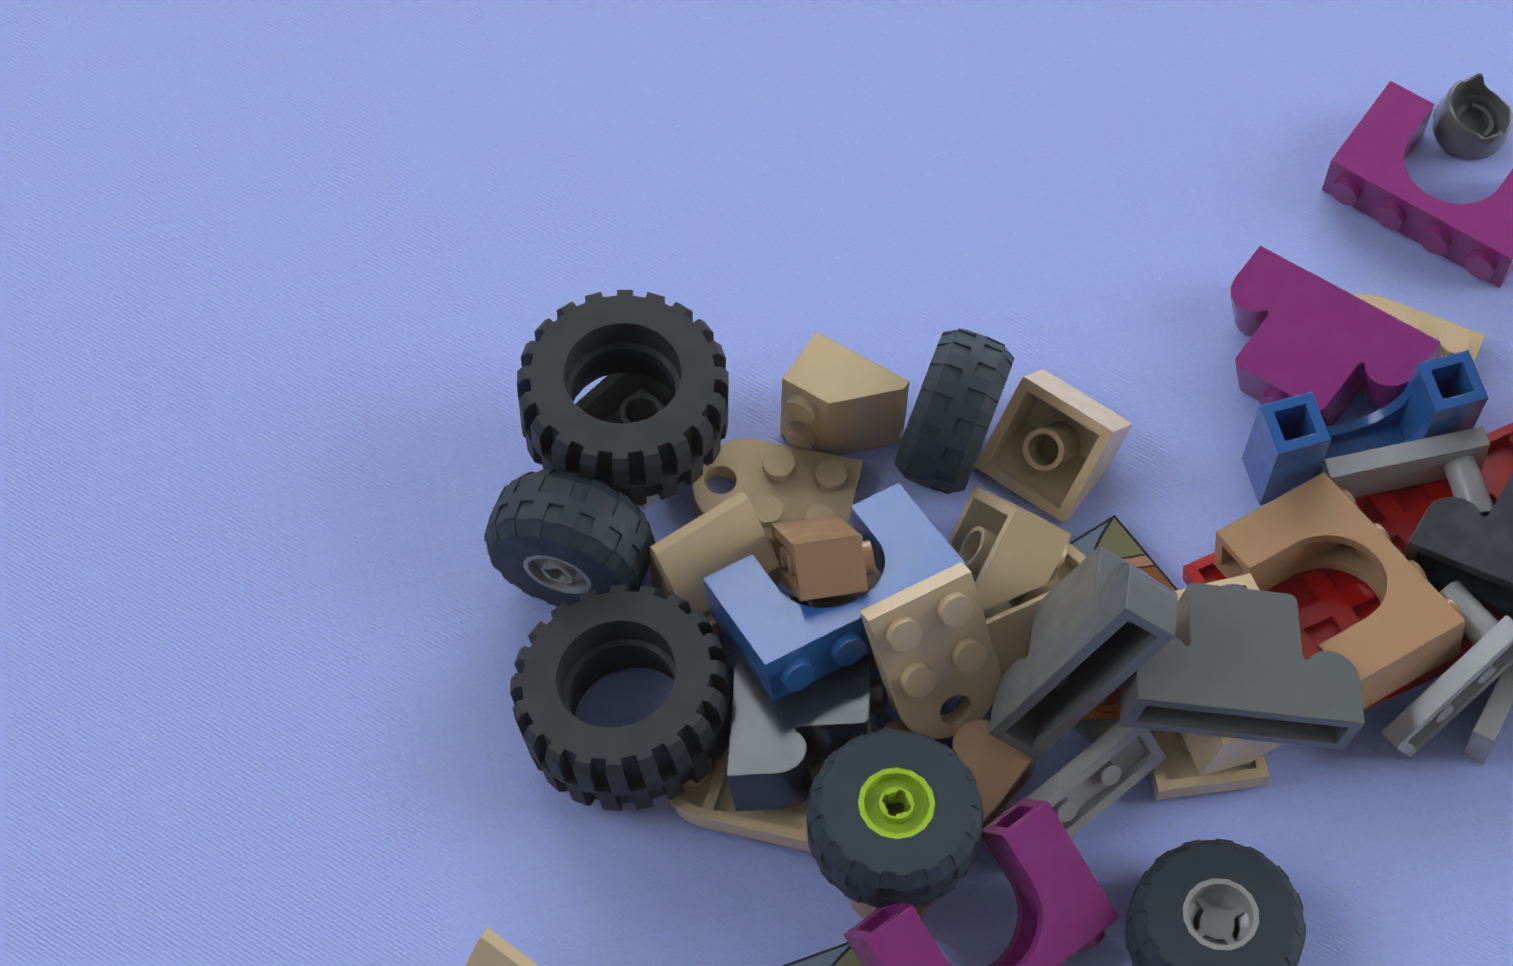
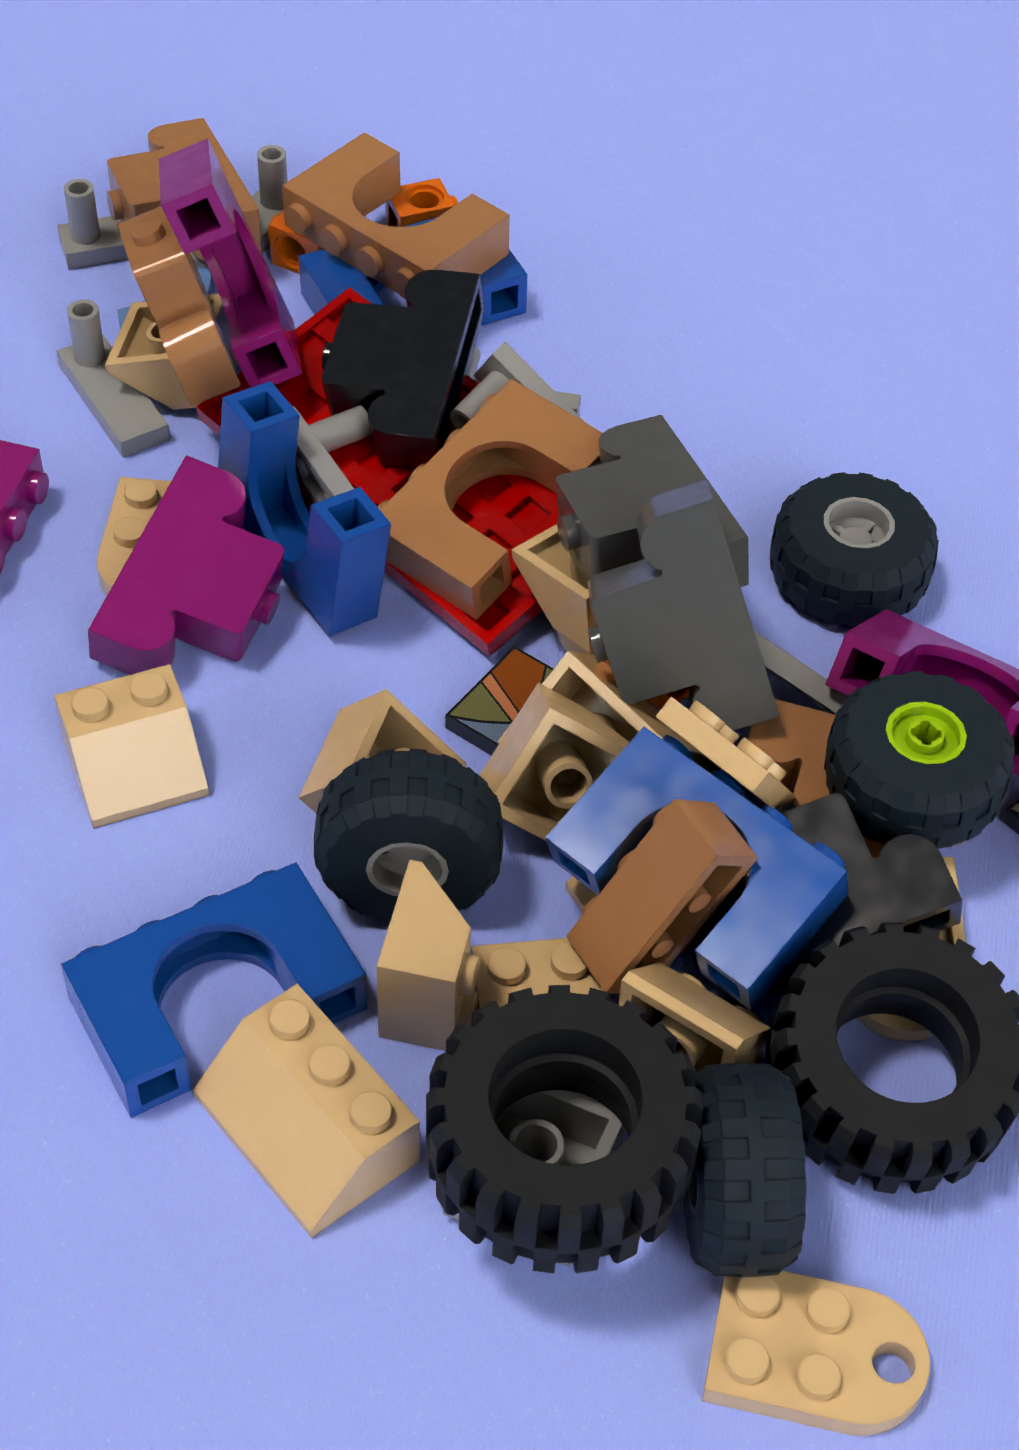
camera: 110 degrees left, 10 degrees down
(437, 575) = (807, 1351): none -> tan plate
(767, 310) = (308, 1111): none -> tan slope
(901, 219) = (265, 922): none -> blue arch
(1144, 273) = (131, 745): none -> tan slope

